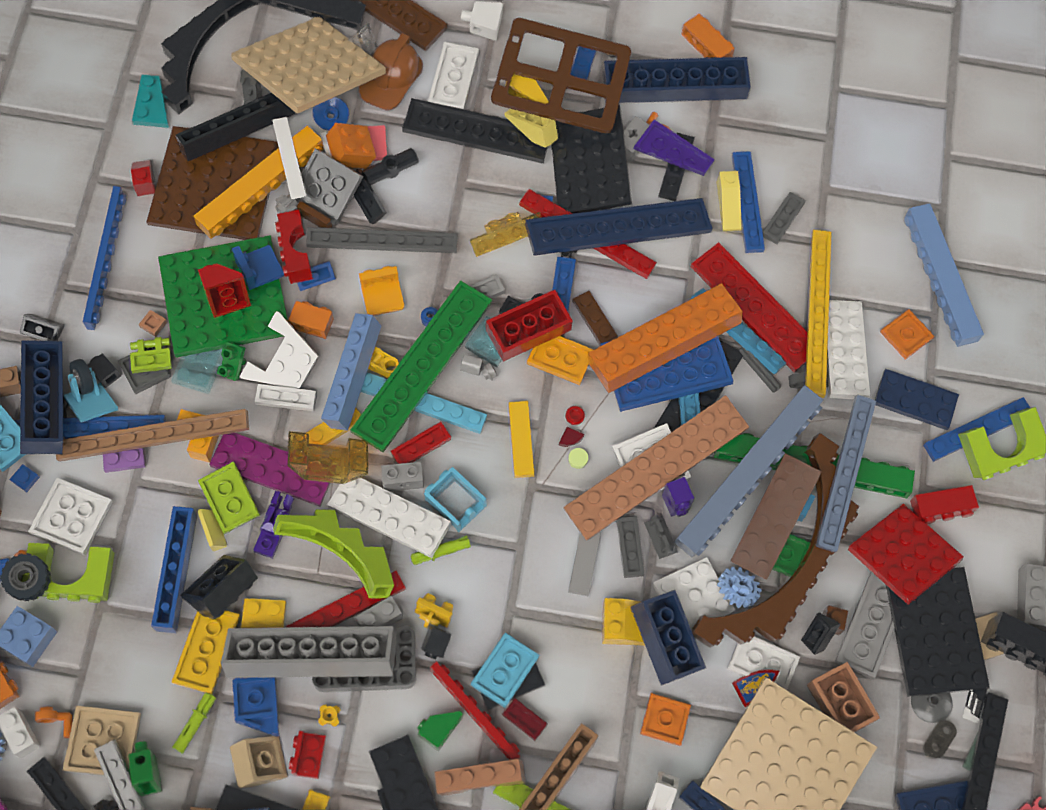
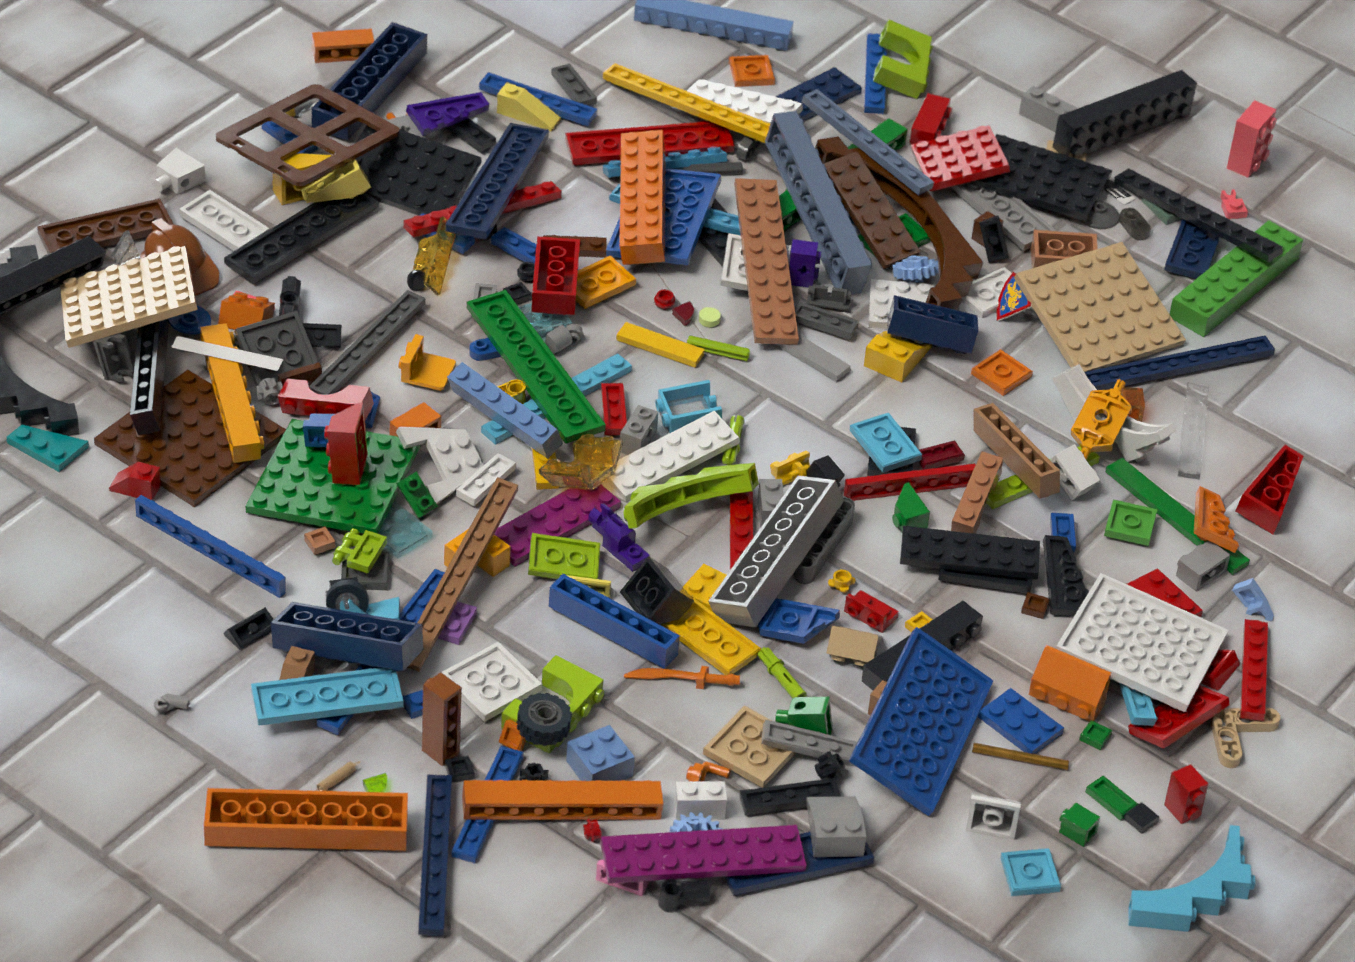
camera: 60 degrees left, 25 degrees down
(160, 663) = (701, 677): none -> orange sword
(474, 231) = (415, 280): none -> black plate
(544, 483) = (720, 348): none -> lime axle

